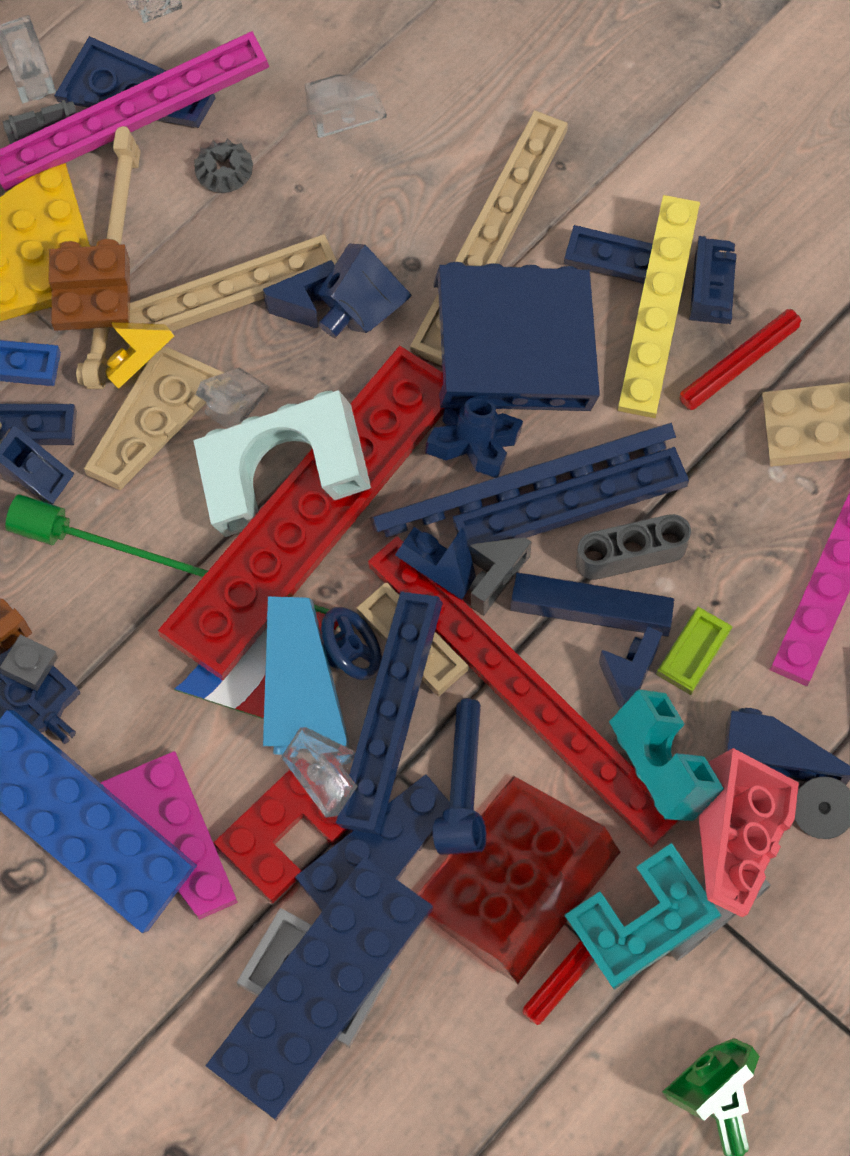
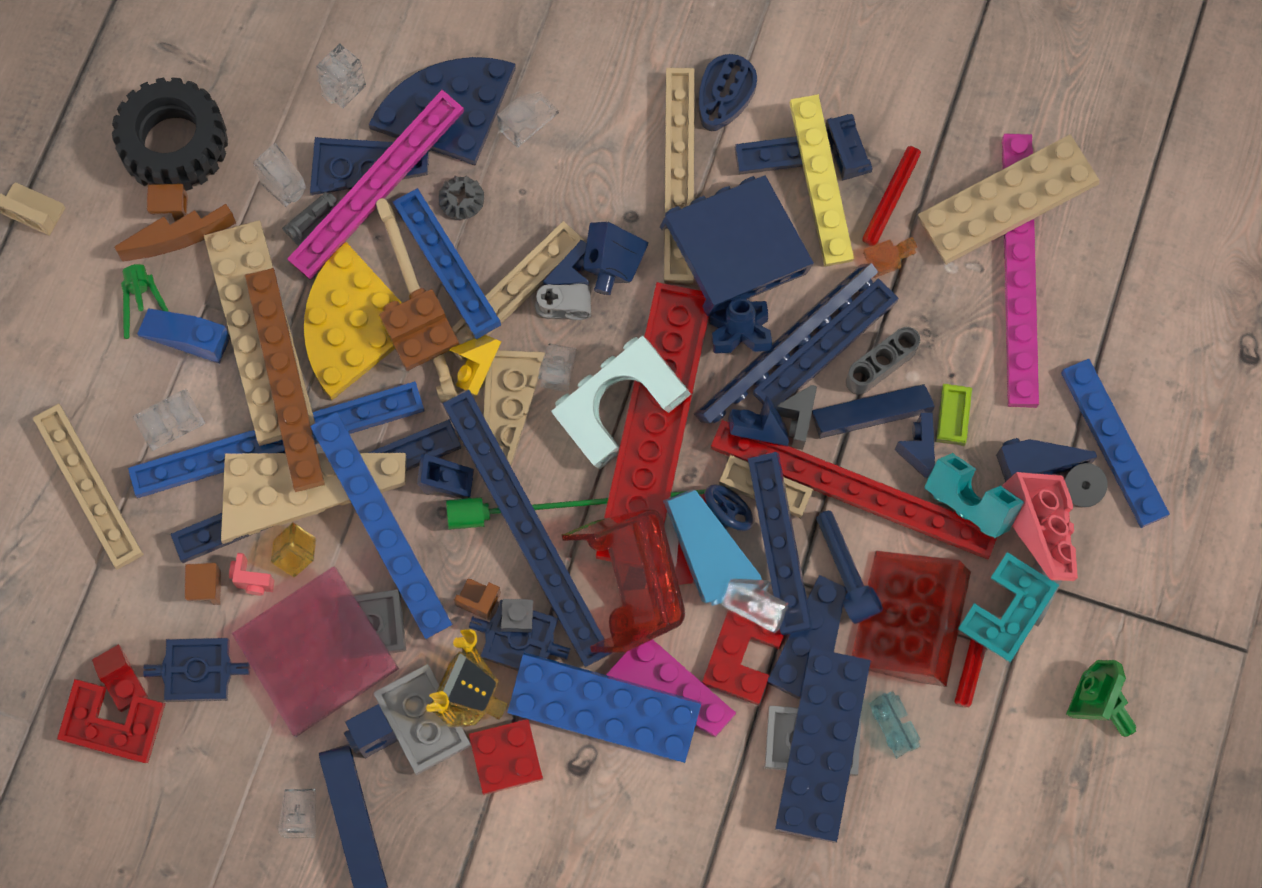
camera: 30 degrees left, 5 degrees up
(94, 570) = (525, 526): none -> dark blue plate
(163, 230) = (447, 263): none -> blue plate
(201, 679) = (643, 576): none -> clear red windscreen
(280, 325) = (566, 302): none -> light grey piece
(297, 53) = (471, 81): none -> dark blue plate
(428, 1023) = (887, 712): none -> clear light blue hinge
(585, 148) = (739, 92): none -> dark blue piece
(697, 428) = (887, 257): none -> clear orange plate

